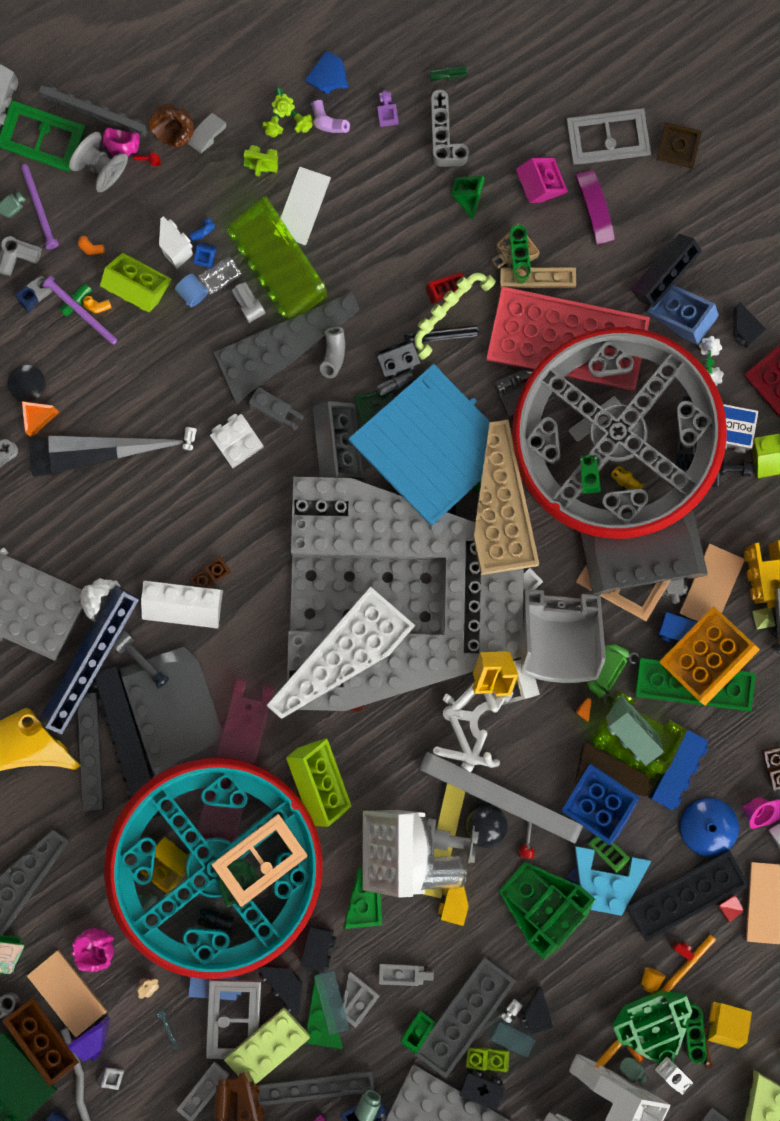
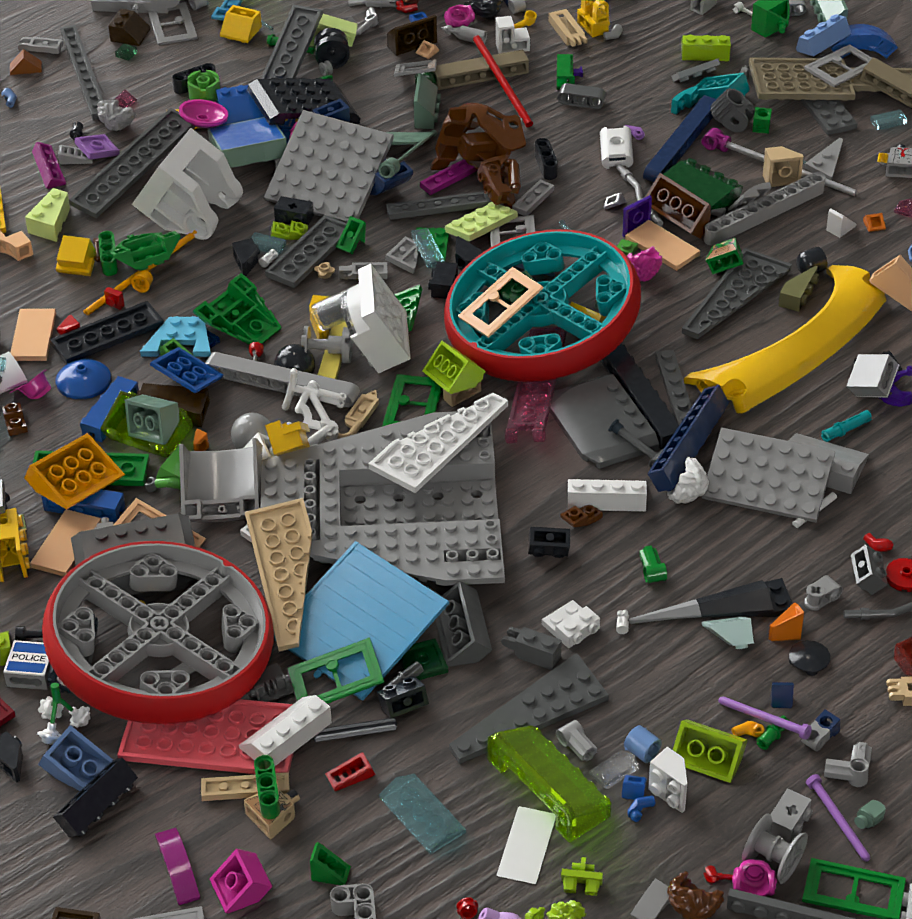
camera: 175 degrees right, 40 degrees down
(60, 338) = (782, 695): none -> dark blue slope
(78, 216) = (790, 815): none -> light grey brick
(90, 249) = (764, 781): orange arm -> none
(93, 416) = (734, 631): none -> light aqua slope
(108, 991) = (627, 246): none -> bright green plate
(151, 498) = (652, 567): none -> green piece
(245, 535) = (549, 542): none -> black brick
(334, 352) = (473, 699): light grey cylinder -> none
(357, 142) = (467, 908): none -> red plate
(382, 760) = (397, 397): none -> green door
(387, 243) = (421, 812): none -> clear light blue slope
(420, 739) = (360, 413): none -> tan plate
(430, 409) = (331, 661): none -> green door
(440, 311) = (372, 710): yellowish green bar -> none
(444, 982) = (324, 270): none -> tan plate
(503, 323) = (289, 730): none -> white slope
(531, 722) = (247, 427): none -> light grey piece
(590, 474) = (190, 580): green leg -> none
(633, 1070) = (159, 226): sand green arm -> none
(673, 1075) = (127, 224): white leg -> none

